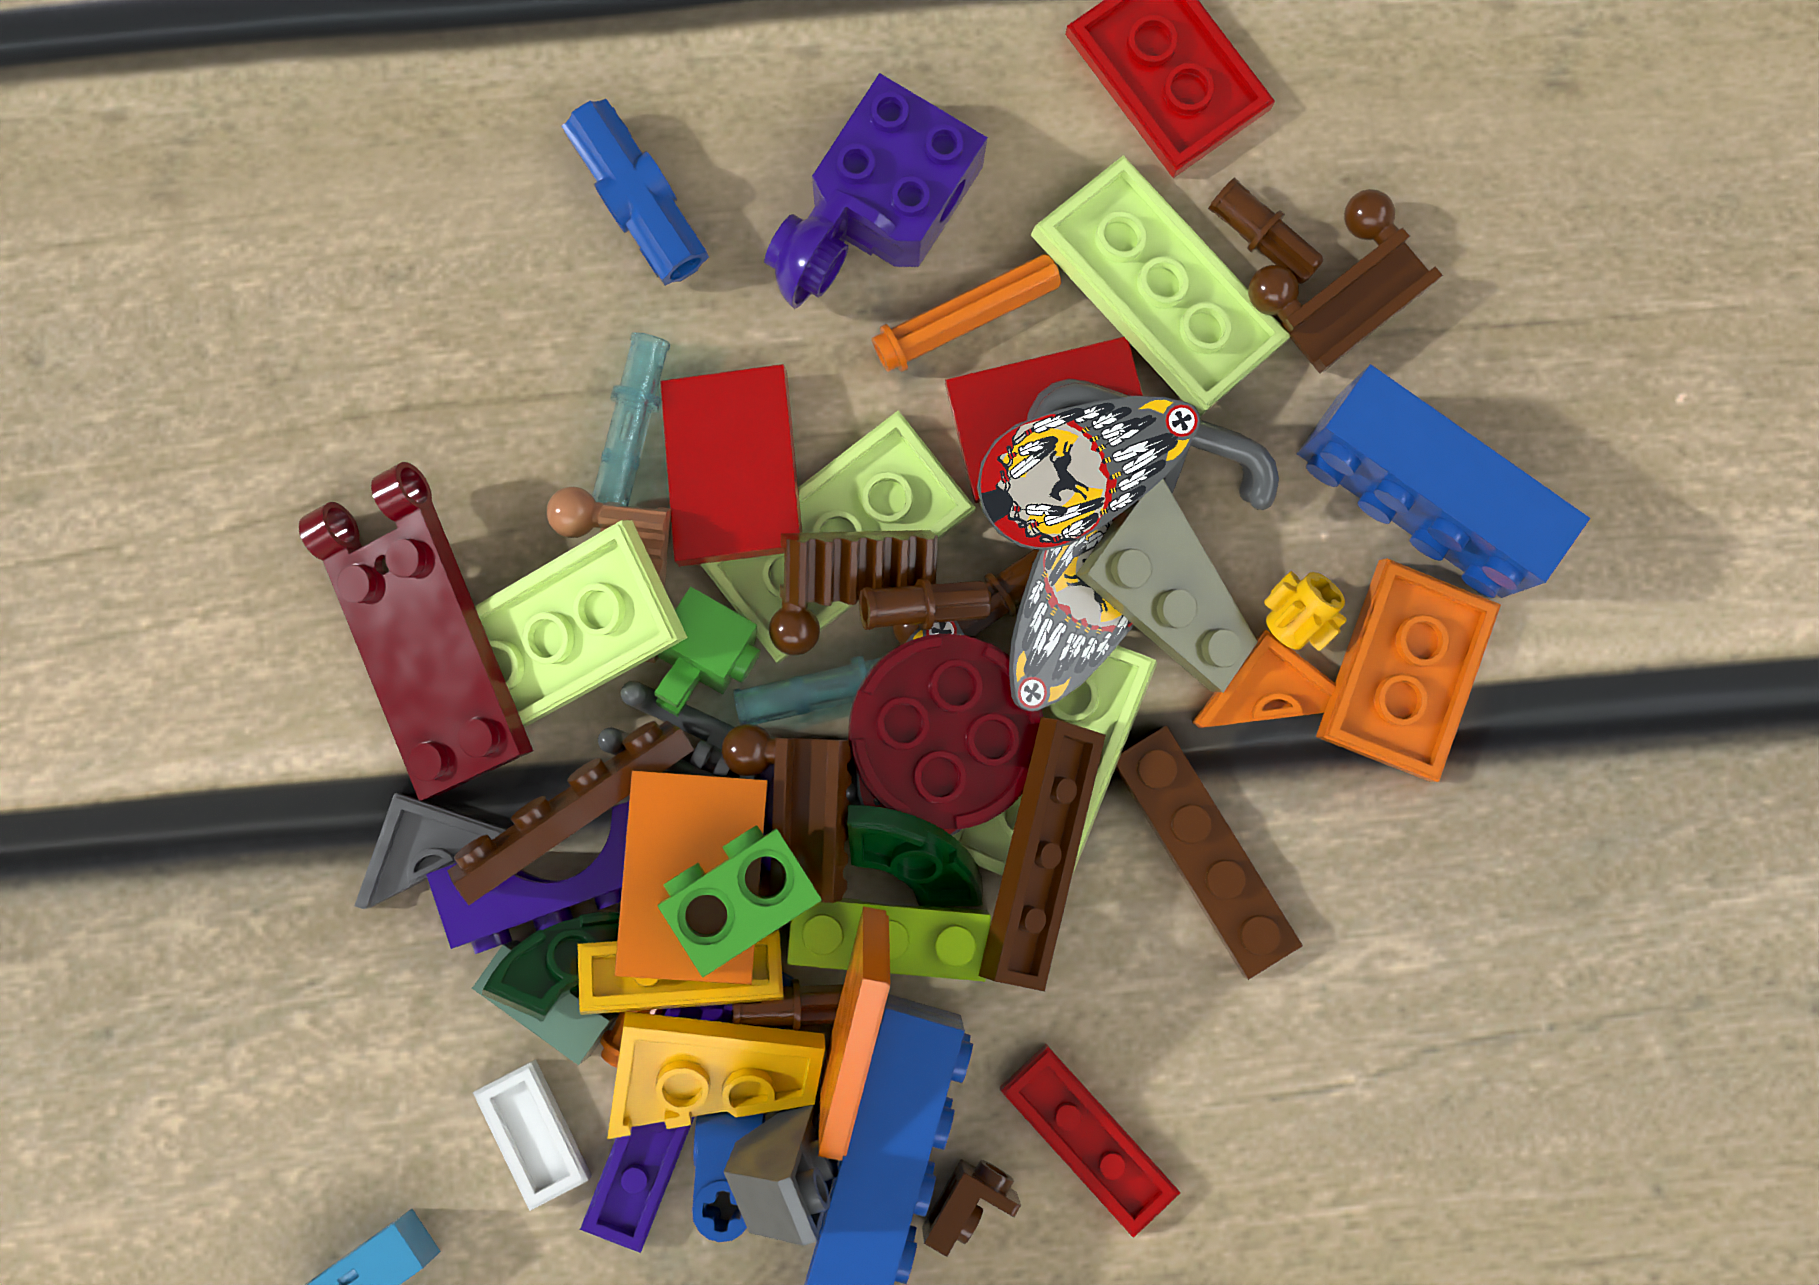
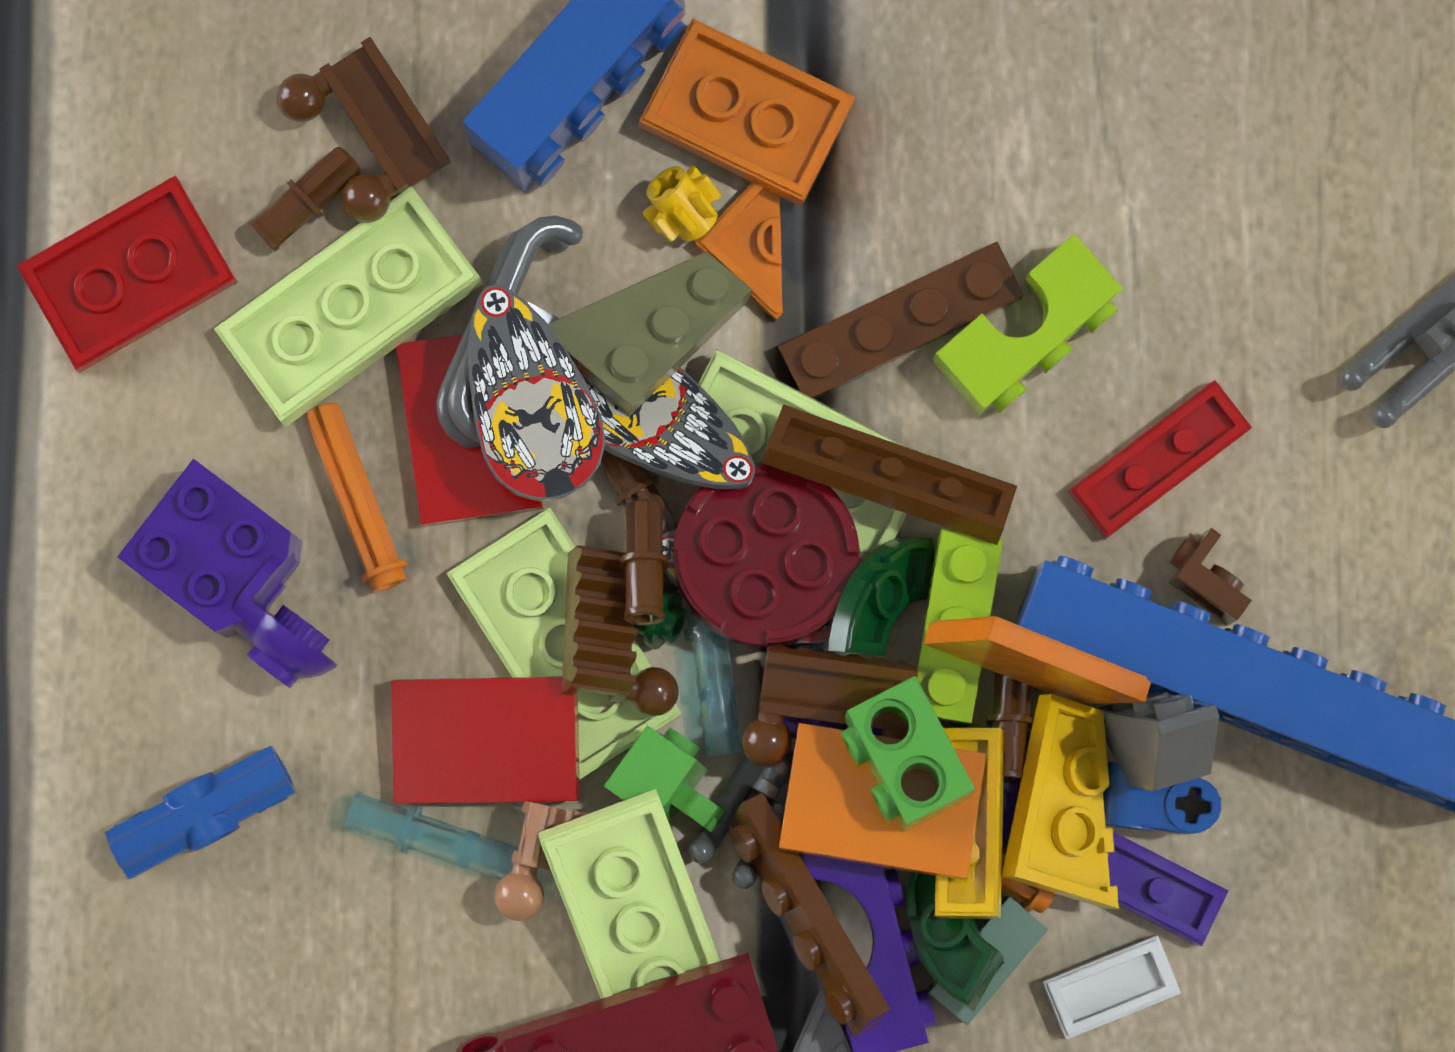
camera: 85 degrees left, 0 degrees up
(869, 642) = (671, 627): none -> dark green plate
(1257, 1031) = (1072, 294): none -> lime arch

